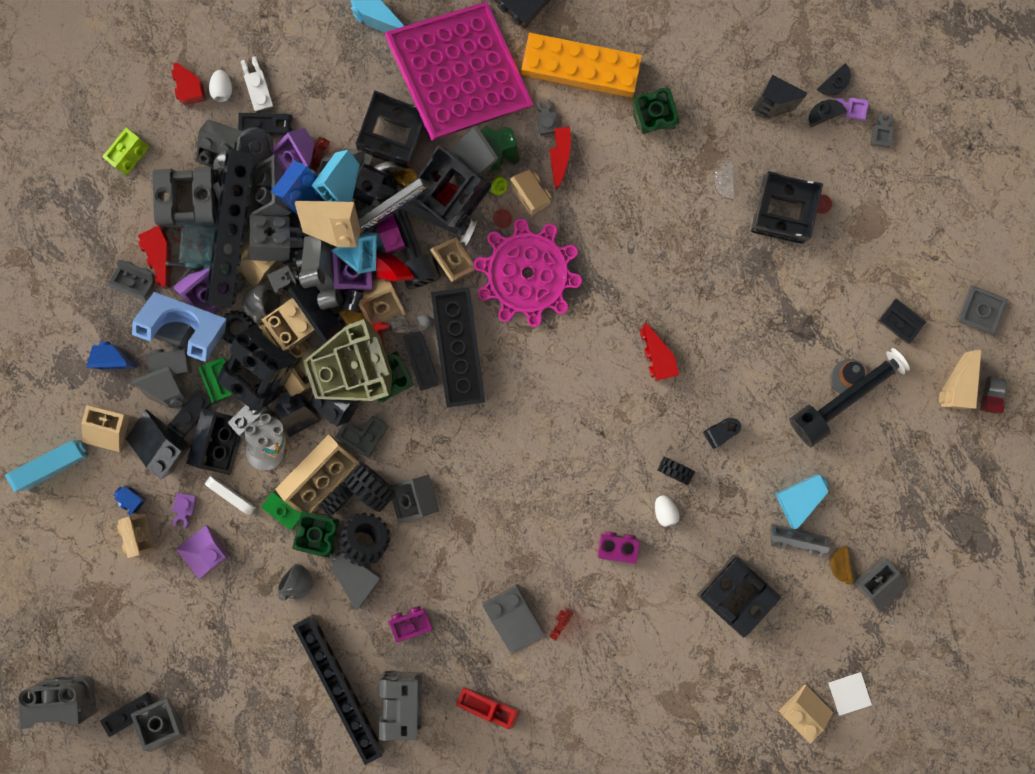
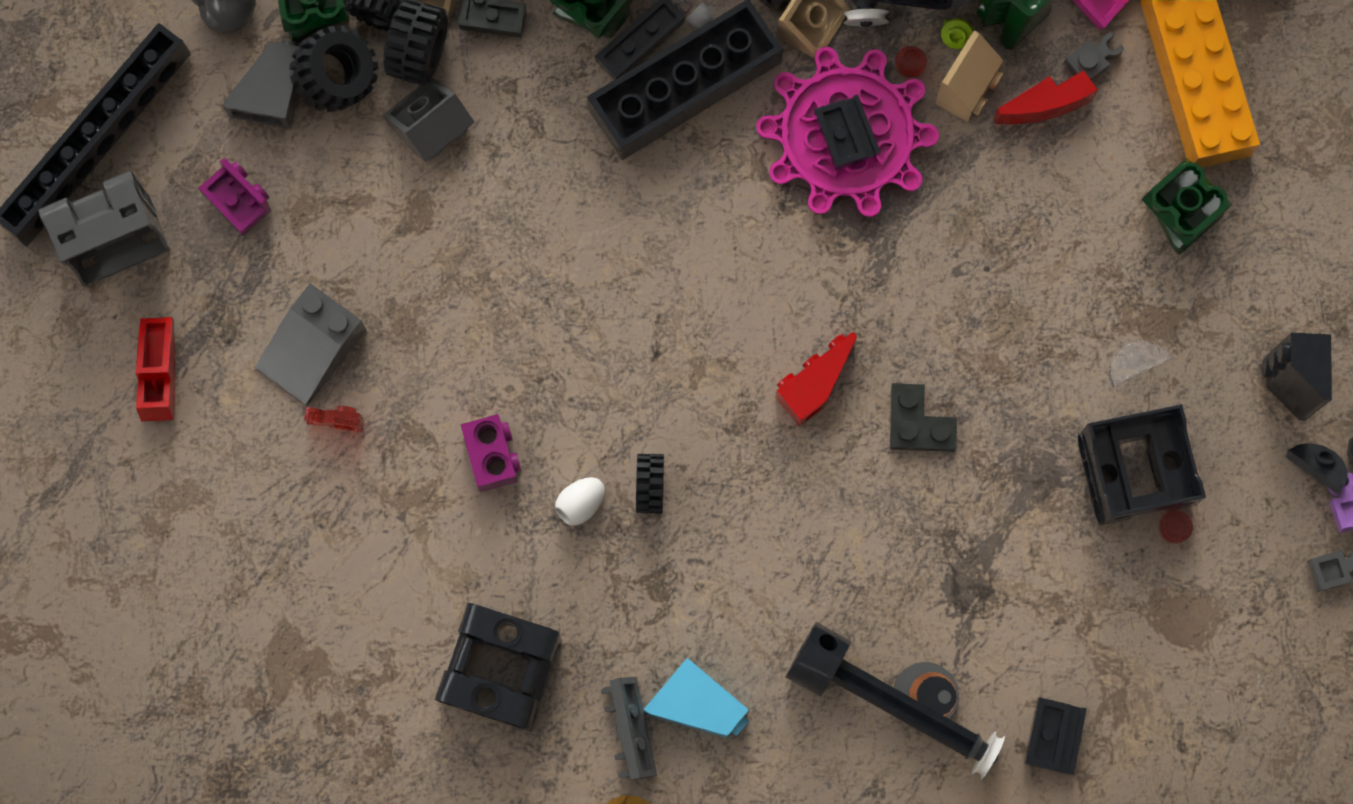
camera: 65 degrees right, 10 degrees down
(530, 274) = (846, 132): none -> black plate
(706, 316) = (912, 429): none -> pearl dark grey plate
(719, 434) = (740, 527): black piece -> none

